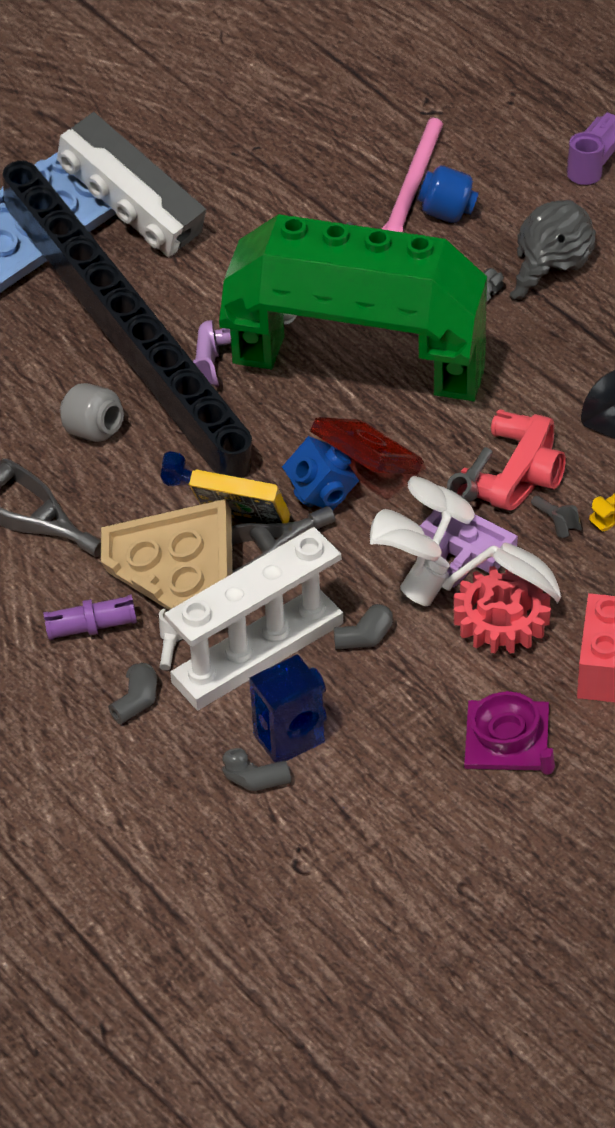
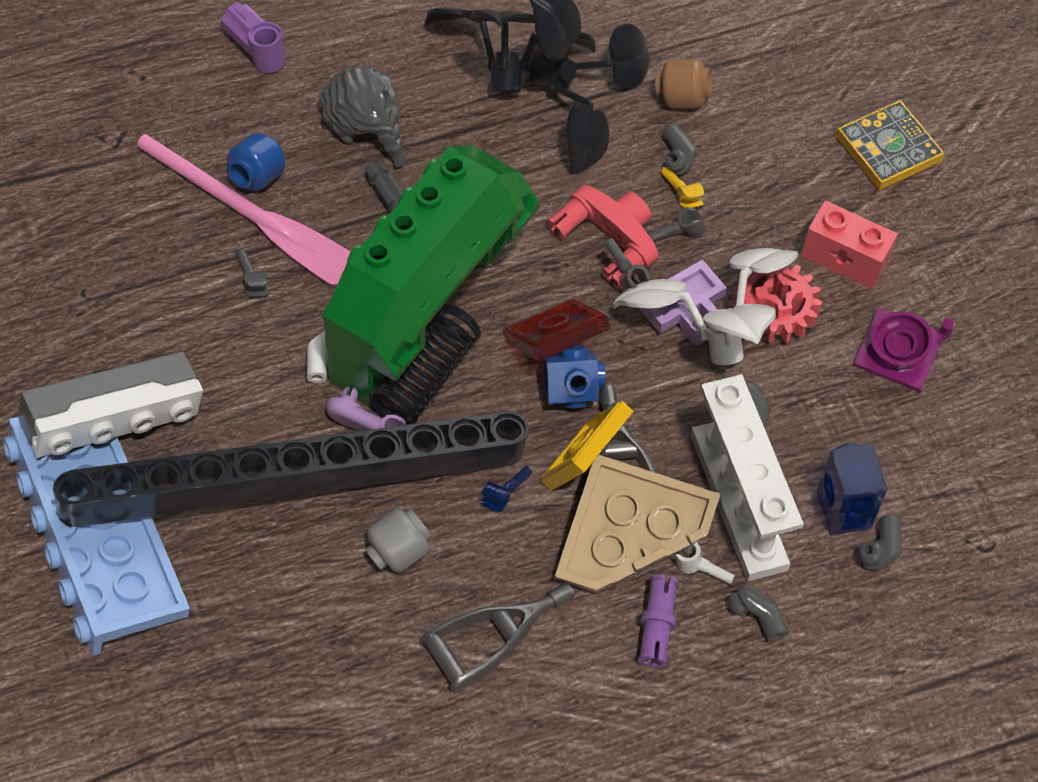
camera: 75 degrees left, 10 degrees up
(337, 375) = (389, 392): none -> black piece

